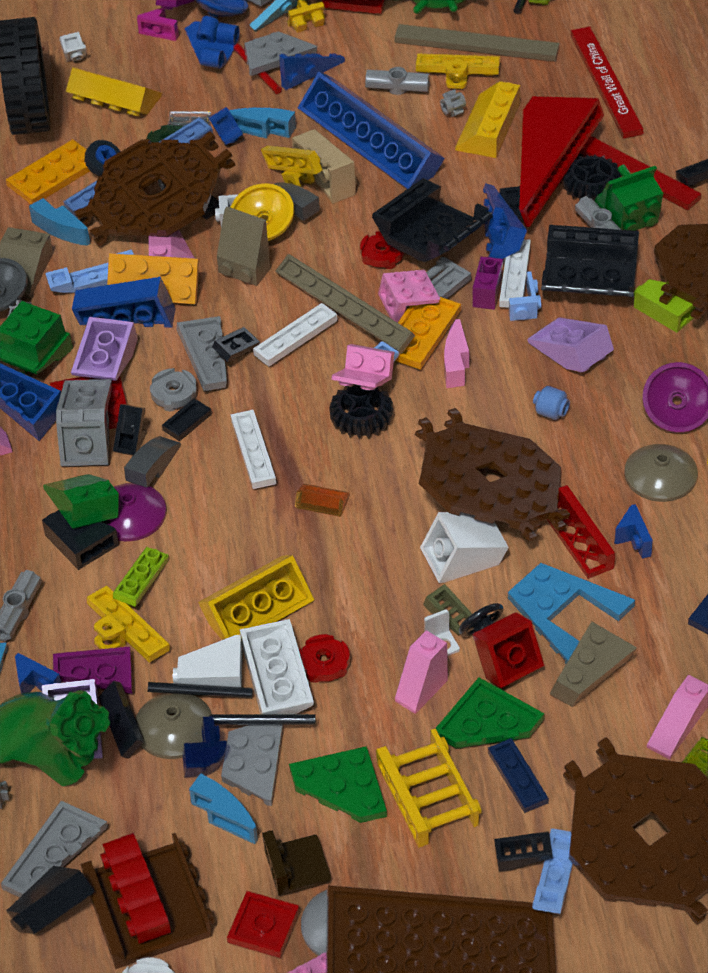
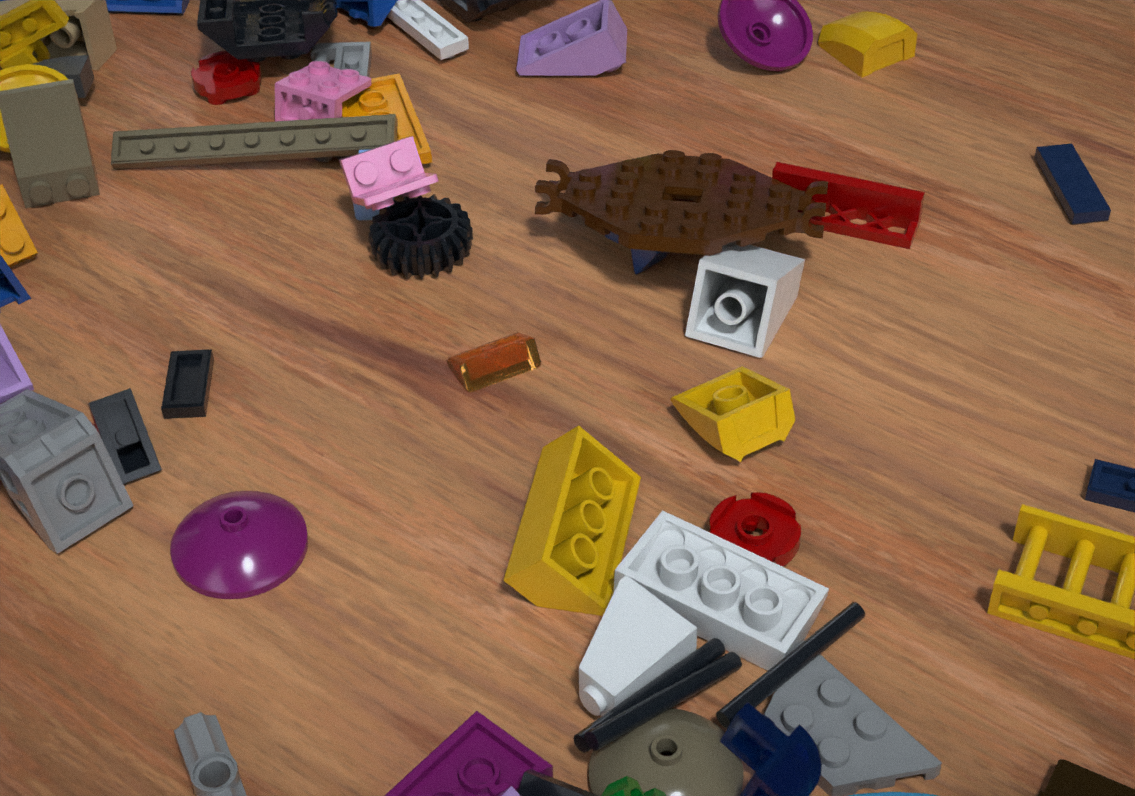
camera: 45 degrees left, 5 degrees down
(82, 543) = (204, 621): black slope -> none
(84, 499) = (171, 556): green slope -> none
(124, 625) = (427, 692): yellow plate -> none
(140, 576) = (371, 609): lime tile -> none
(150, 460) = (204, 459): dark grey slope -> none
(176, 398) = (107, 363): light grey plate -> none
(198, 341) = (113, 290): light grey wing -> none
(199, 695) = (662, 701): none -> black bar
(235, 344) = (160, 259): black plate -> none
(253, 449) = (332, 359): white plate -> none
(295, 334) = (225, 211): white plate -> none
(342, 783) = (989, 668): green plate -> none
(382, 599) = (738, 411): none -> yellow slope
(423, 672) = (915, 450): bright pink slope -> none
(439, 626) = (845, 408): white bracket -> none
(450, 599) = (820, 374): olive slope -> none
(455, 356) = (462, 124): bright pink slope -> none
(487, 283) = (405, 40): magenta slope -> none
(488, 716) = (1037, 454): green plate -> none
(505, 647) = (960, 361): red piece -> none
(526, 307) = (476, 34): light blue bracket -> none
(549, 590) = (899, 291): dark azure wing -> none
(551, 402) = (635, 105): medium blue head -> none
(591, 663) = (1064, 317): dark tan wedge -> none
(634, 529) = (903, 166): blue slope -> none
(661, 472) = (832, 108): dark tan dish -> none

